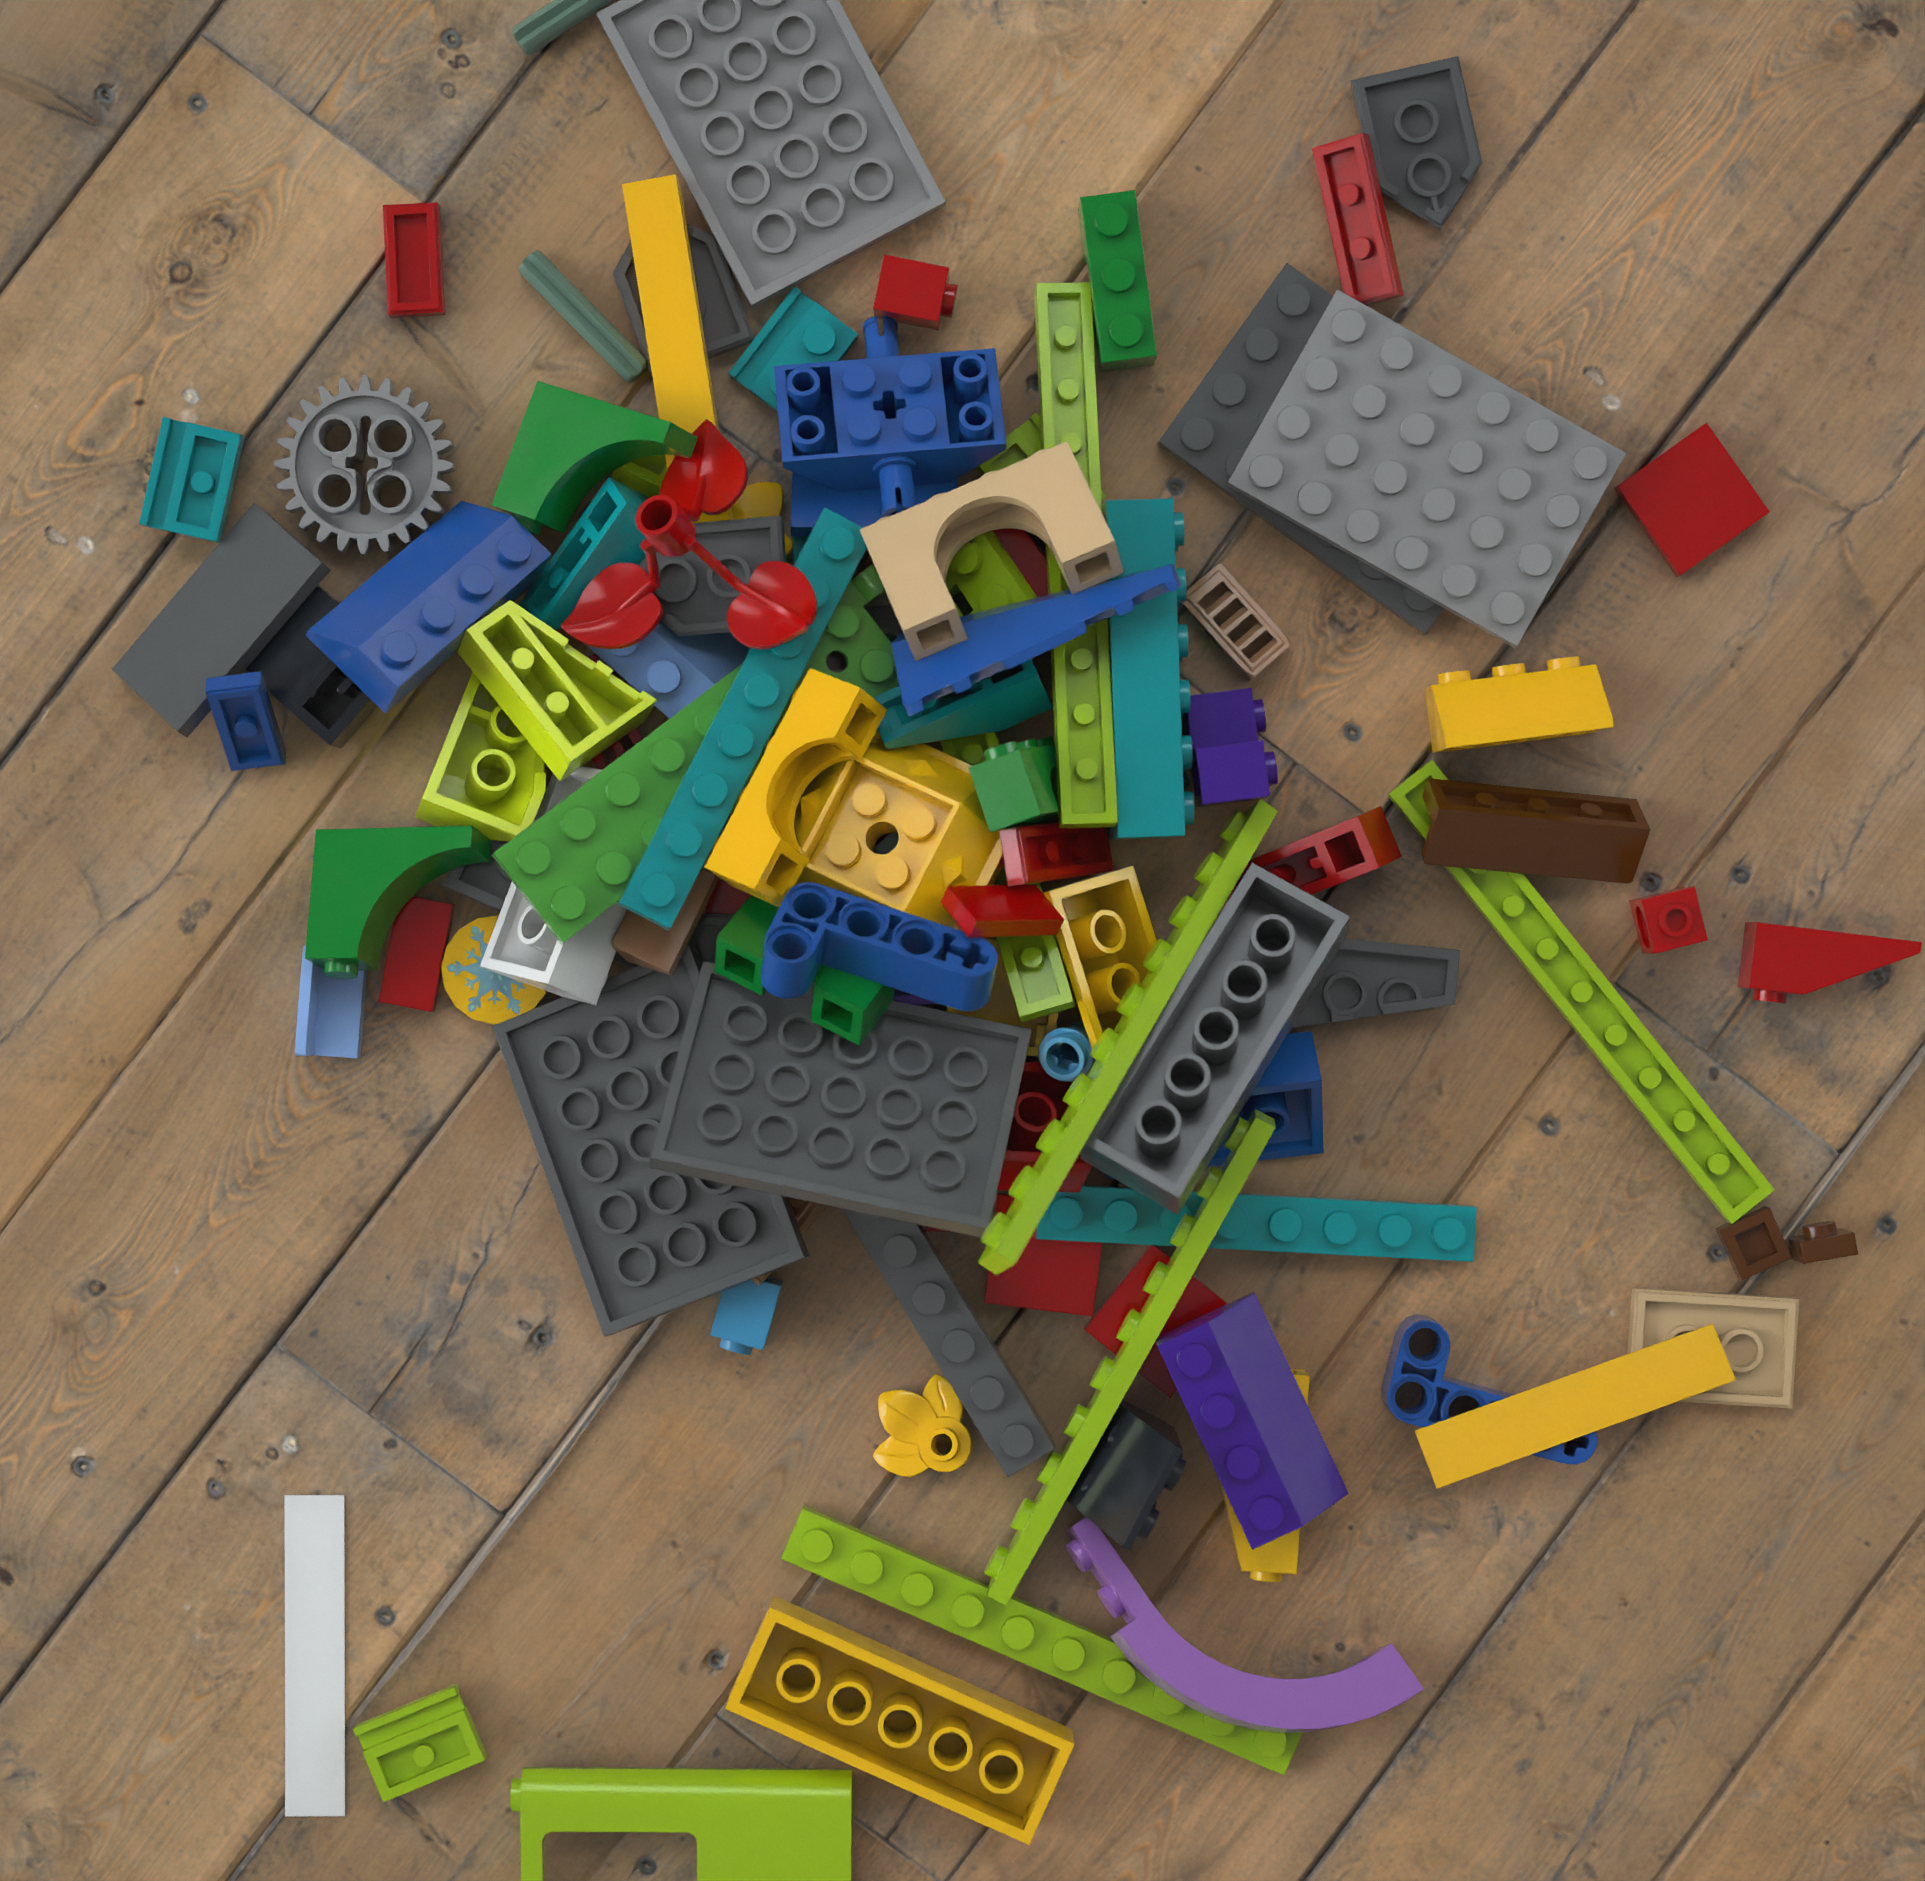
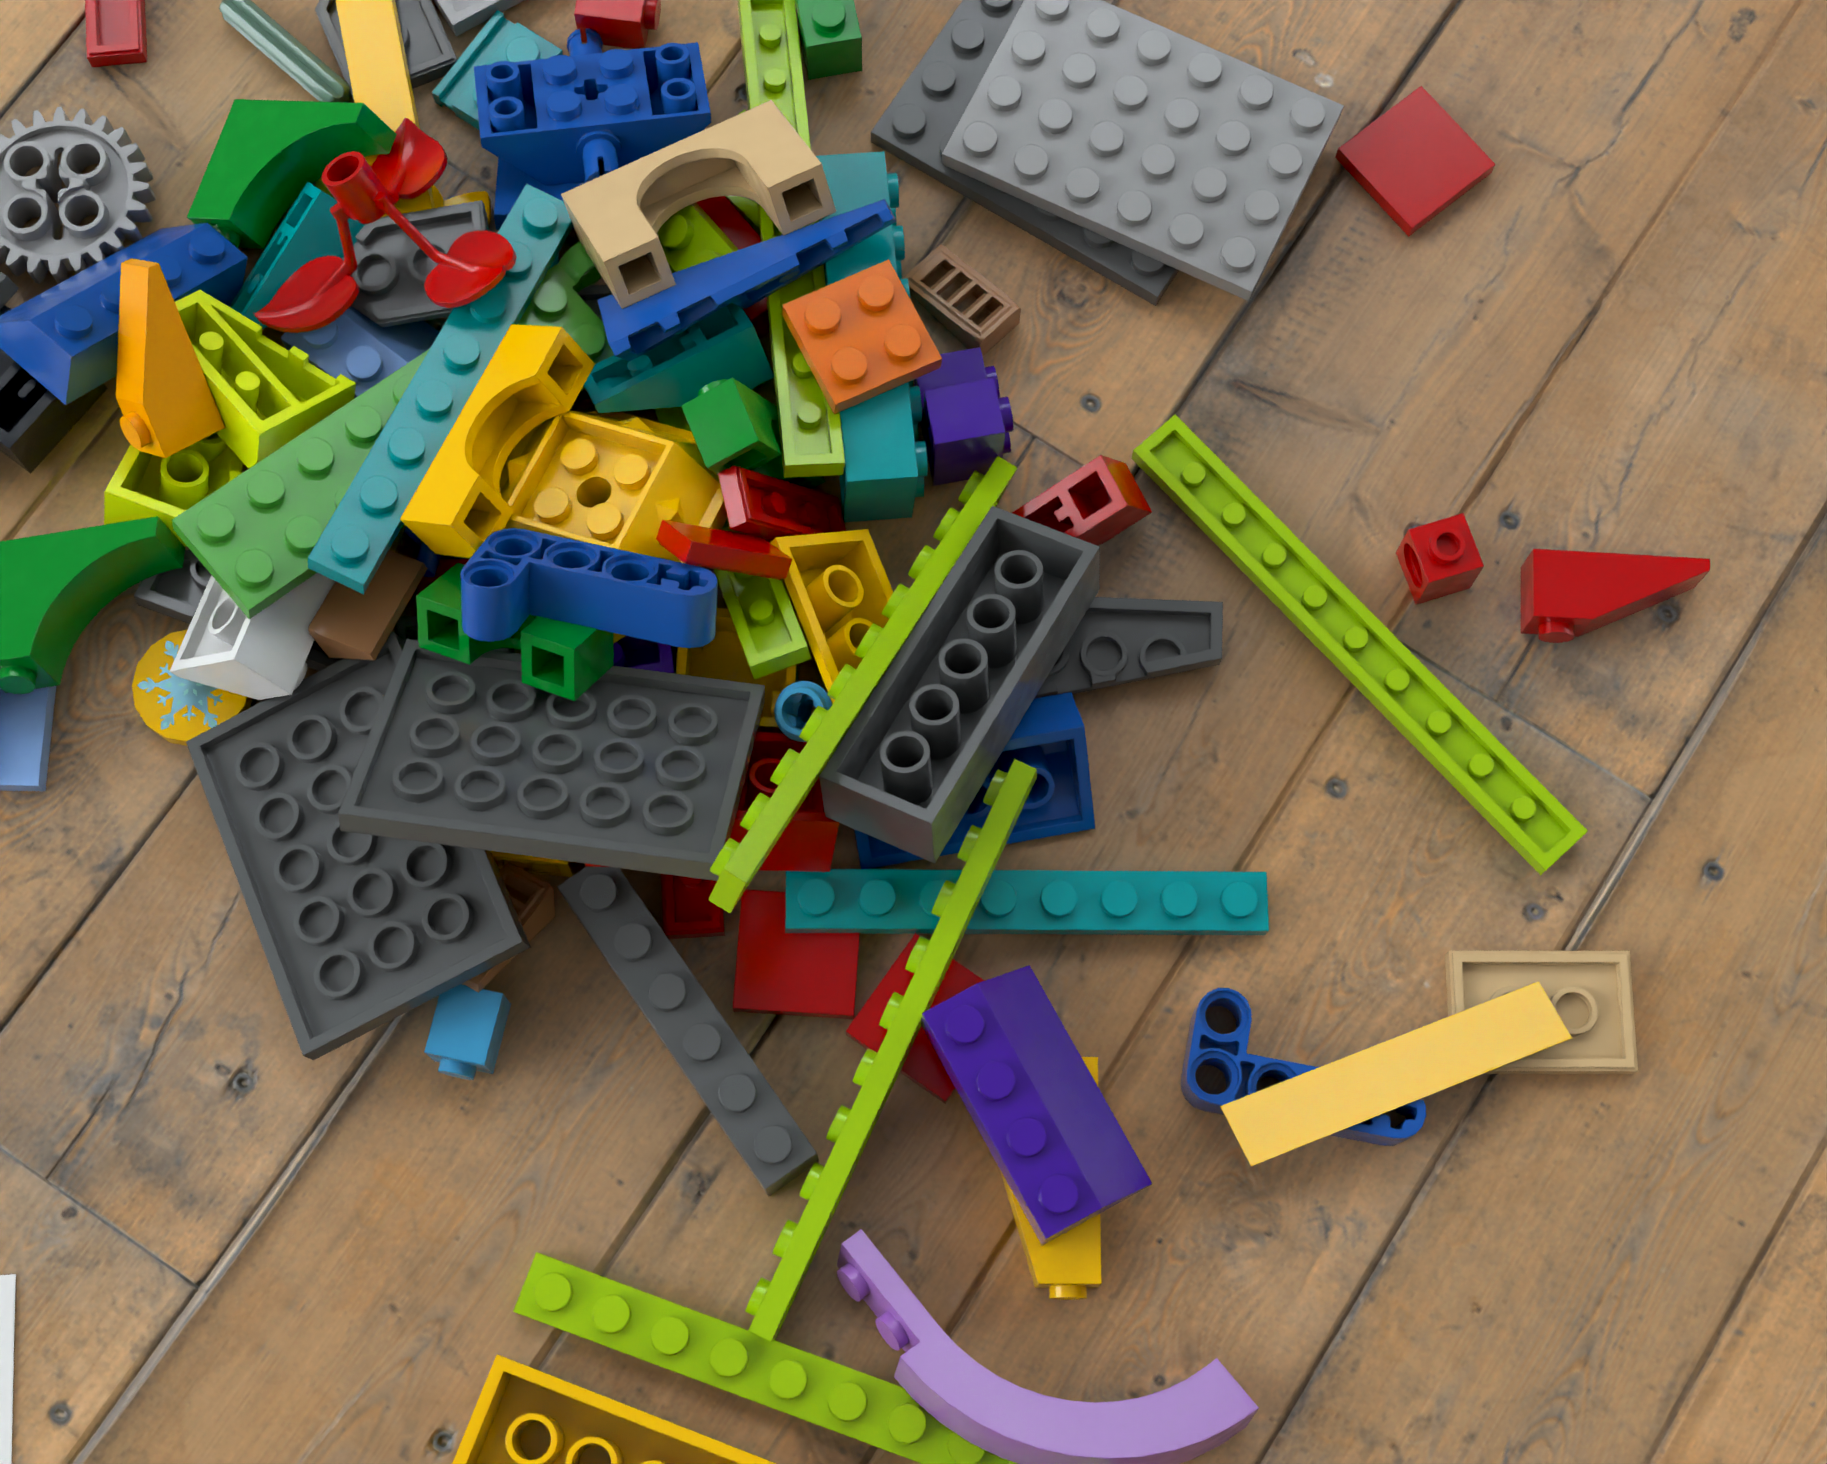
camera: 10 degrees left, 15 degrees down
(416, 954) = (104, 674): red tile -> none
(474, 690) = (158, 372): none -> light orange slope
(916, 1424) = (663, 1149): yellow plate -> none
(1128, 1473) = (895, 1172): black slope -> none
(1140, 696) = (861, 336): none -> orange plate
(1516, 705) = (1258, 359): yellow slope -> none
(1533, 831) = (1287, 477): reddish brown panel -> none
(1754, 1243) = (1572, 892): reddish brown plate -> none
(1822, 1242) = (1646, 886): reddish brown plate -> none

